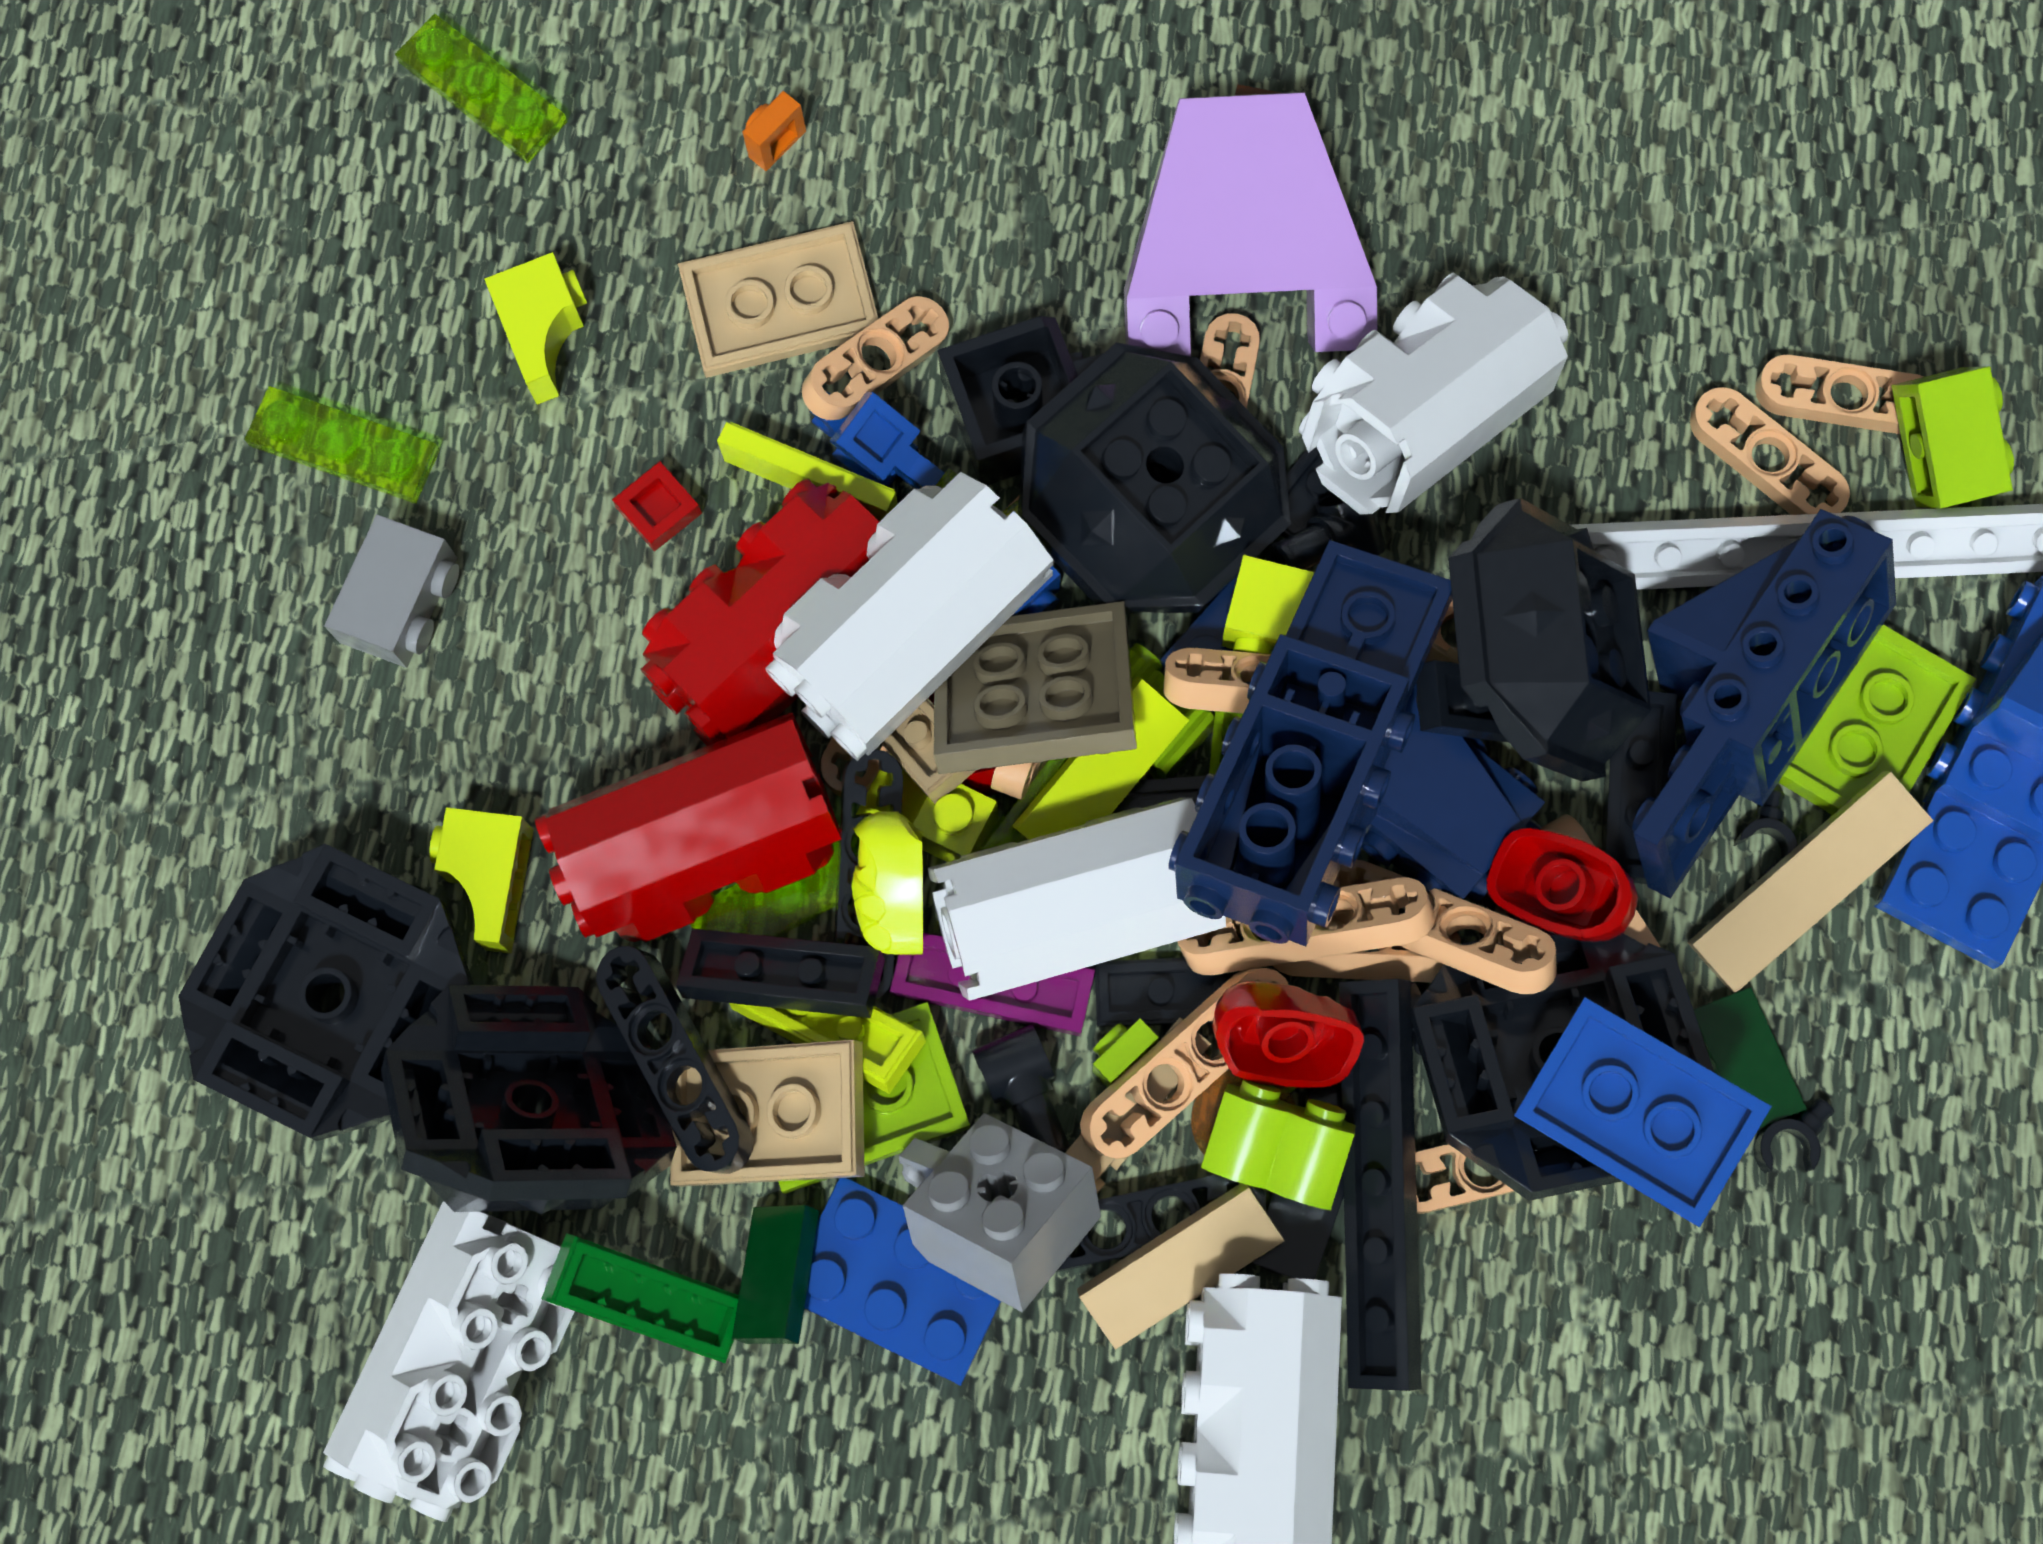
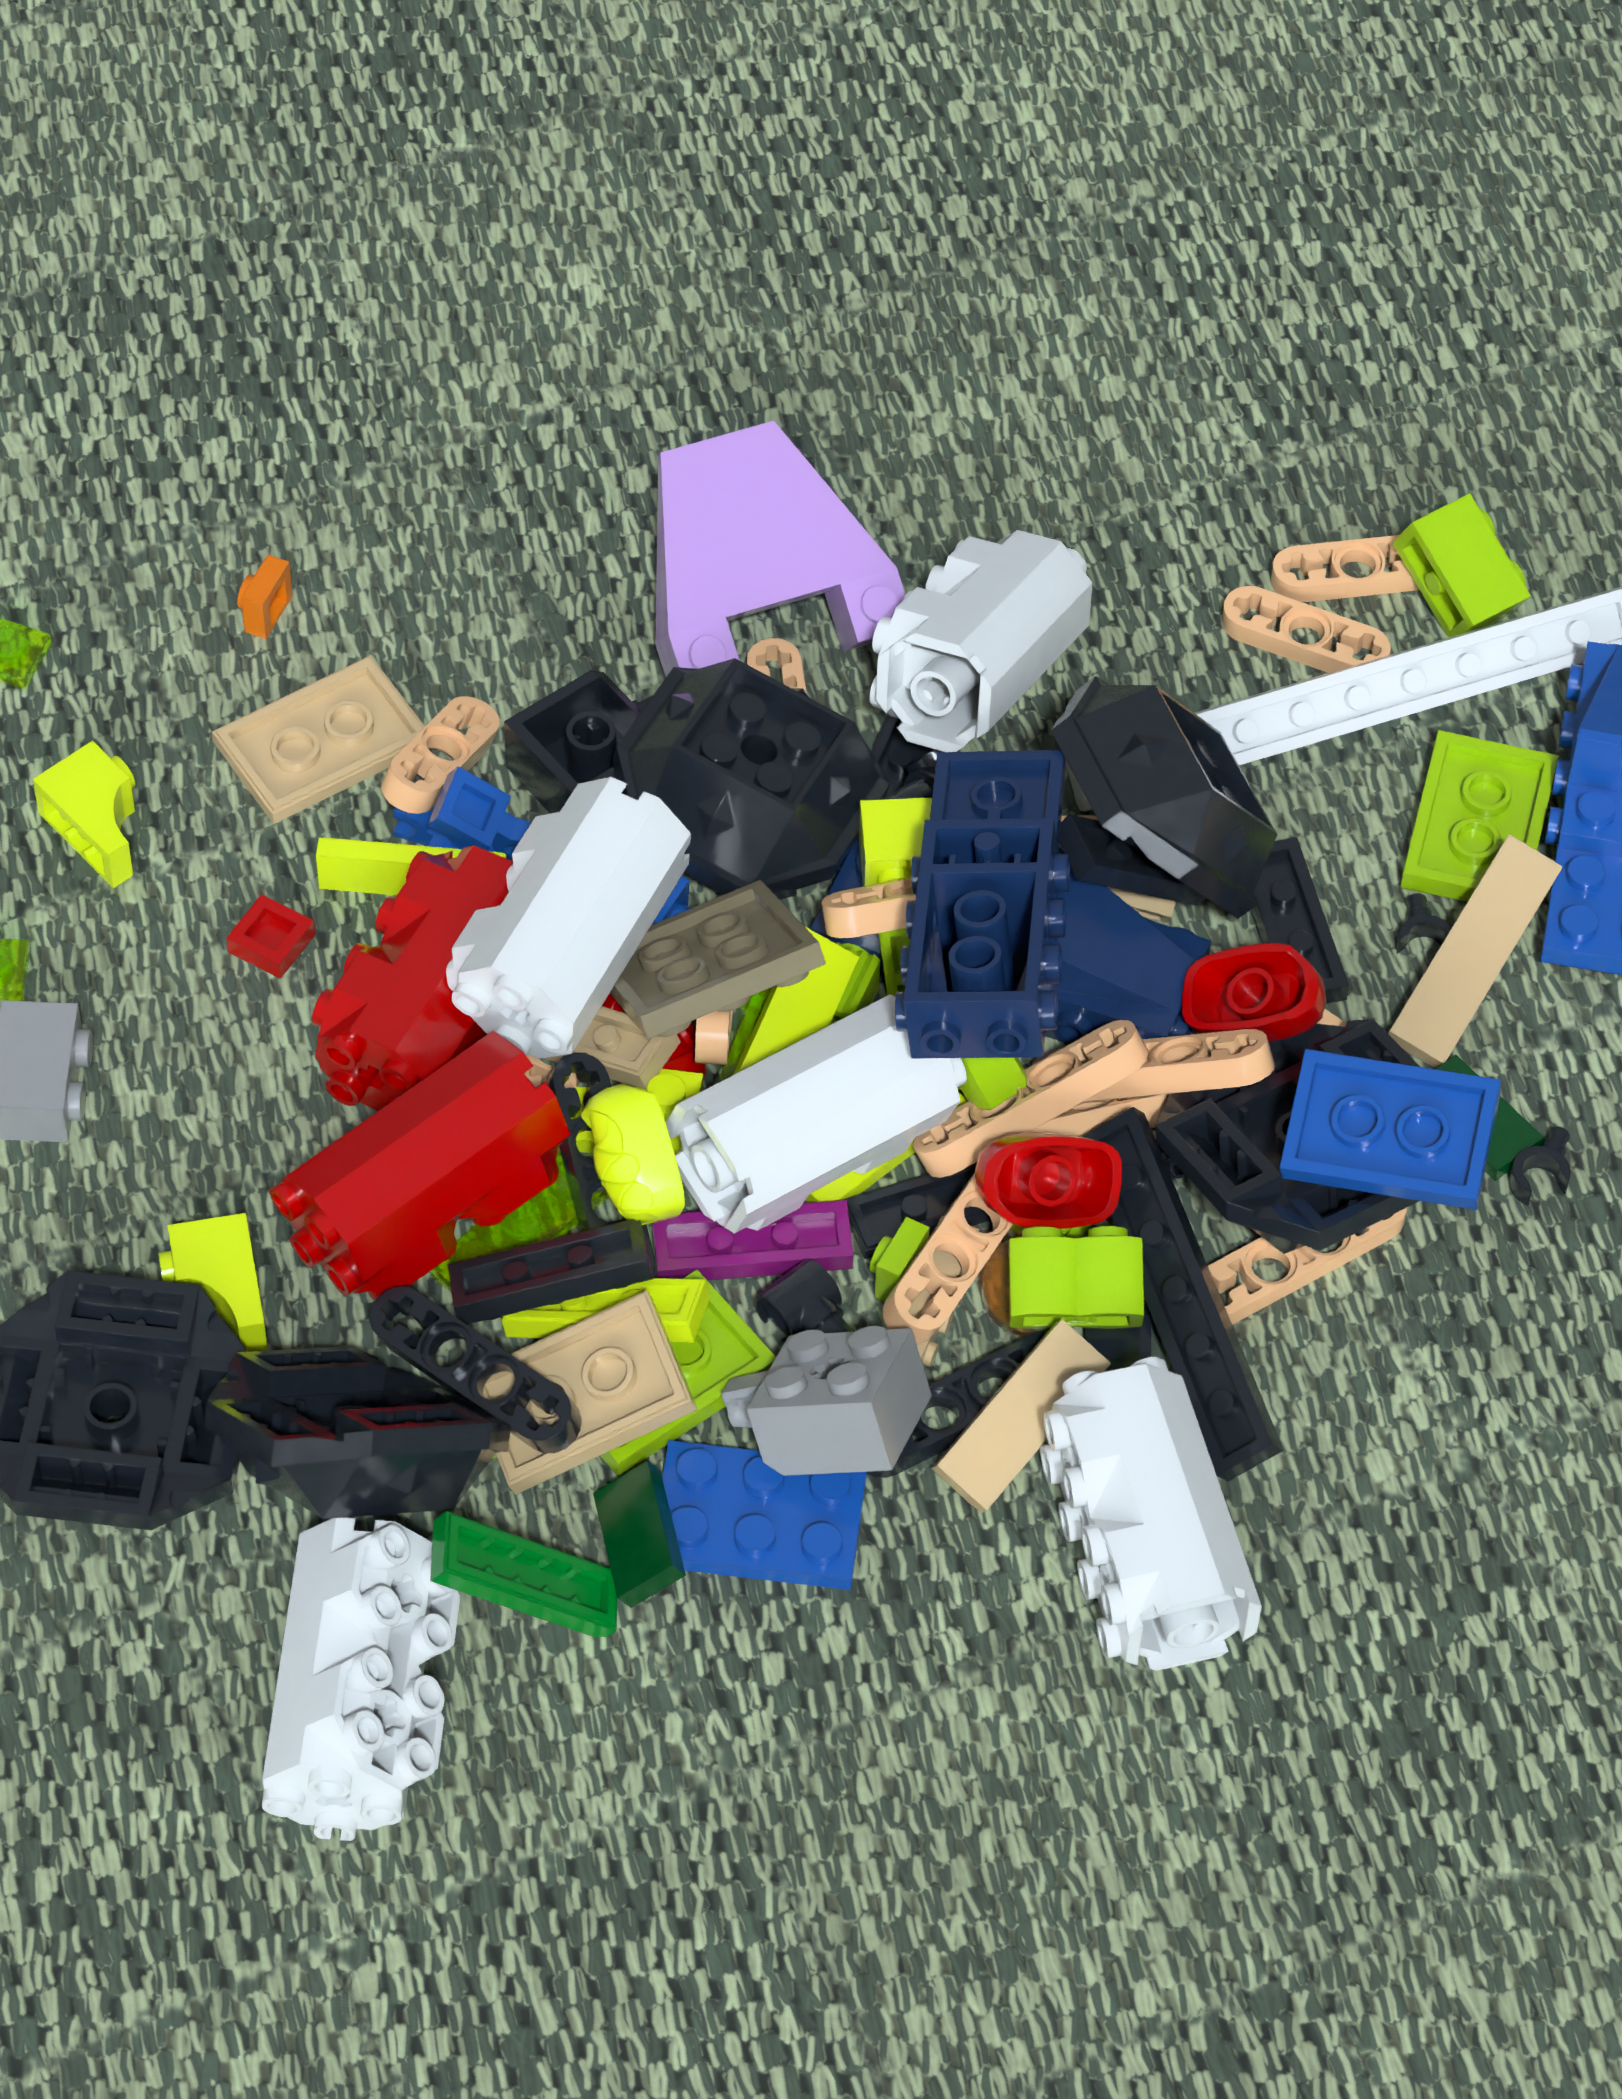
camera: 25 degrees left, 20 degrees down
(1756, 677) = (1362, 790): dark blue wedge -> none

